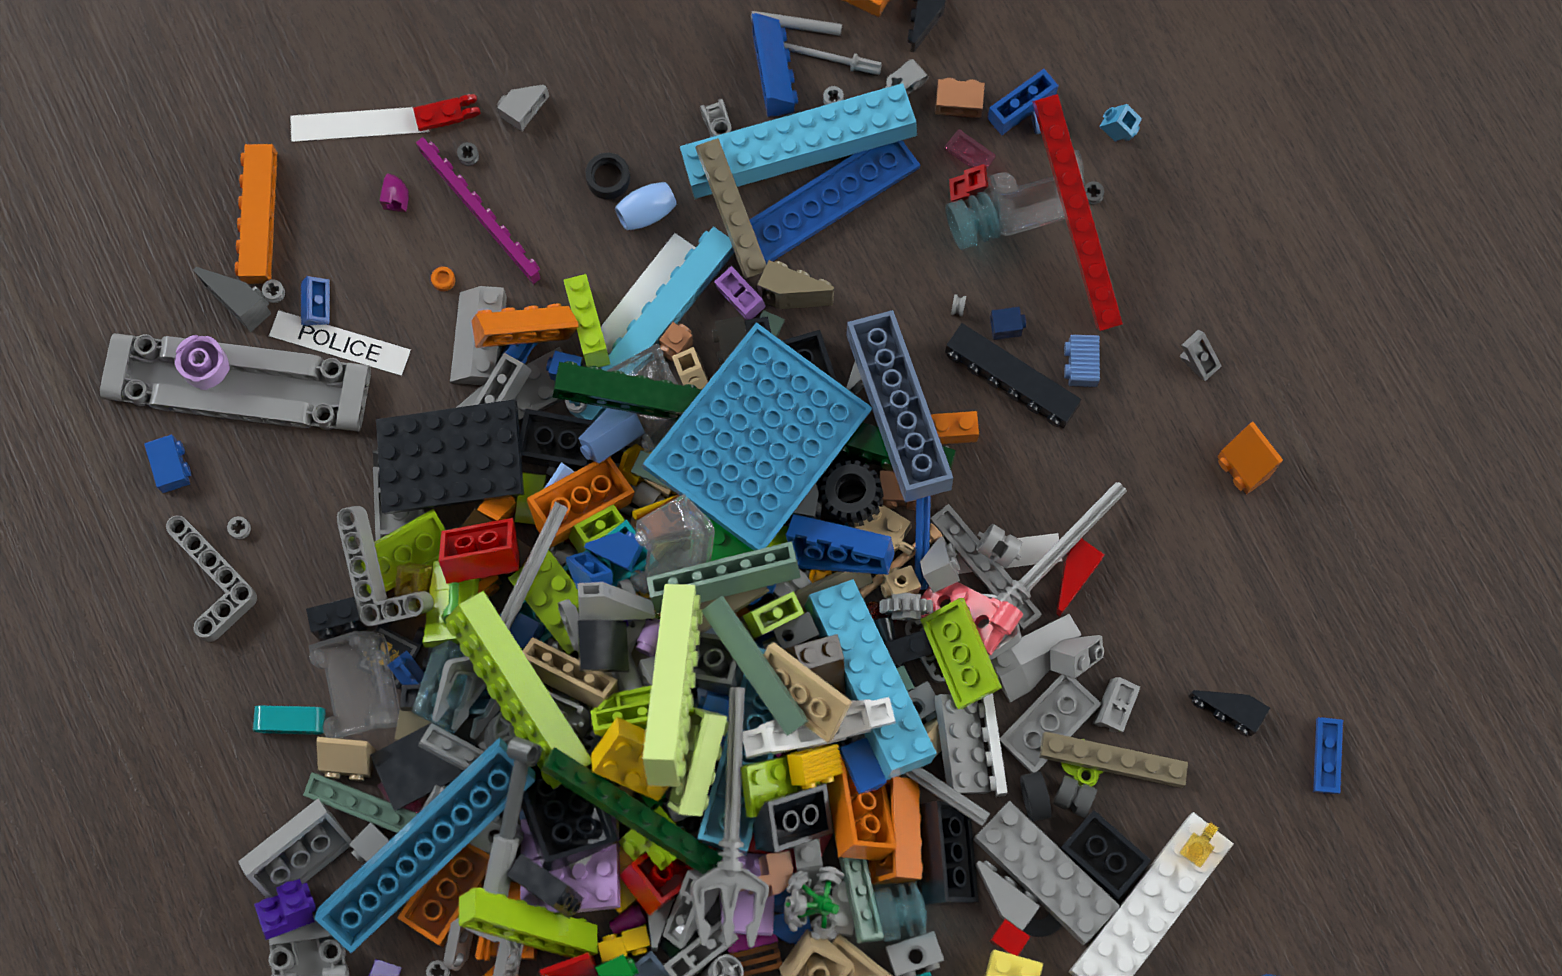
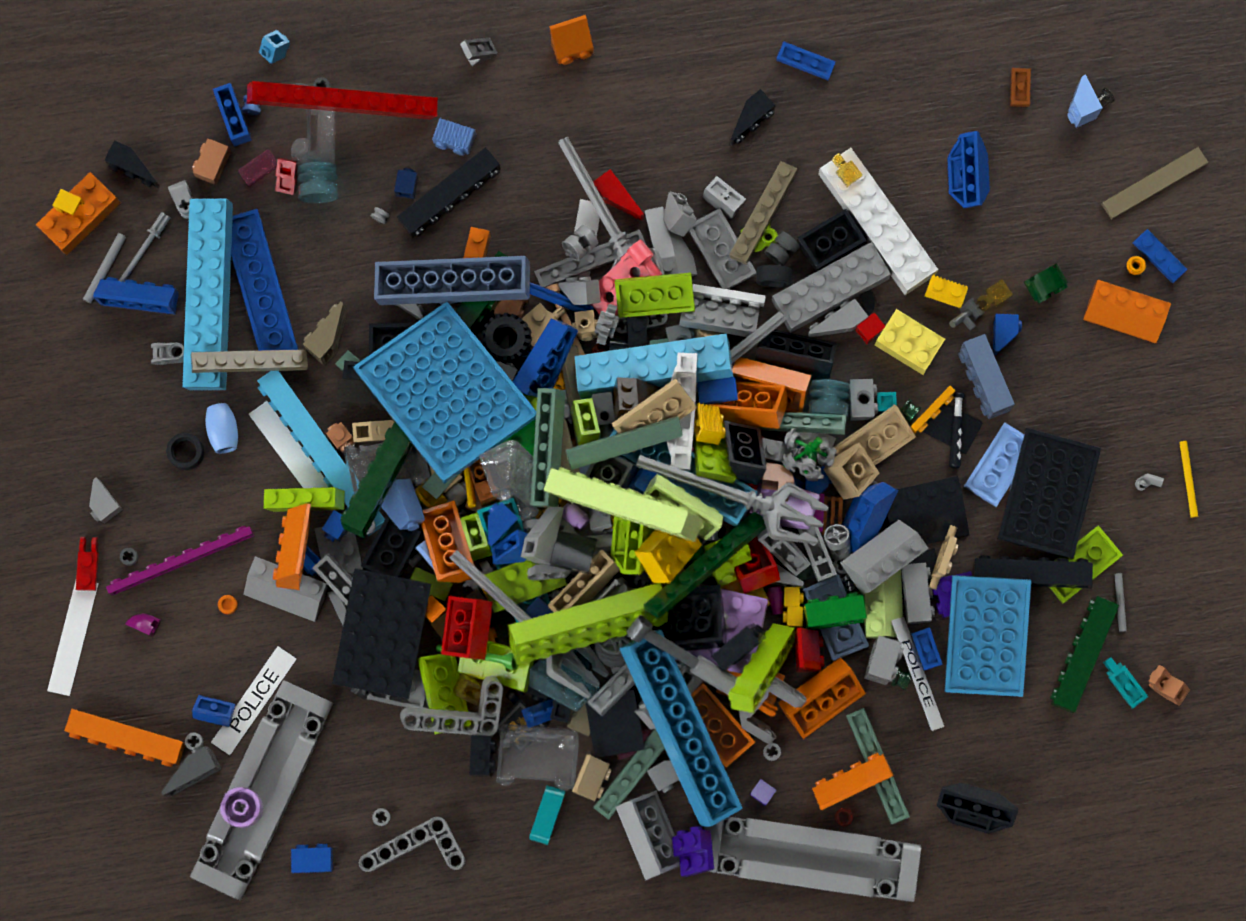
camera: 70 degrees left, 5 degrees up
(739, 294) = (318, 376): medium lavender brick -> none
(830, 91) = (183, 259): light grey bush -> none

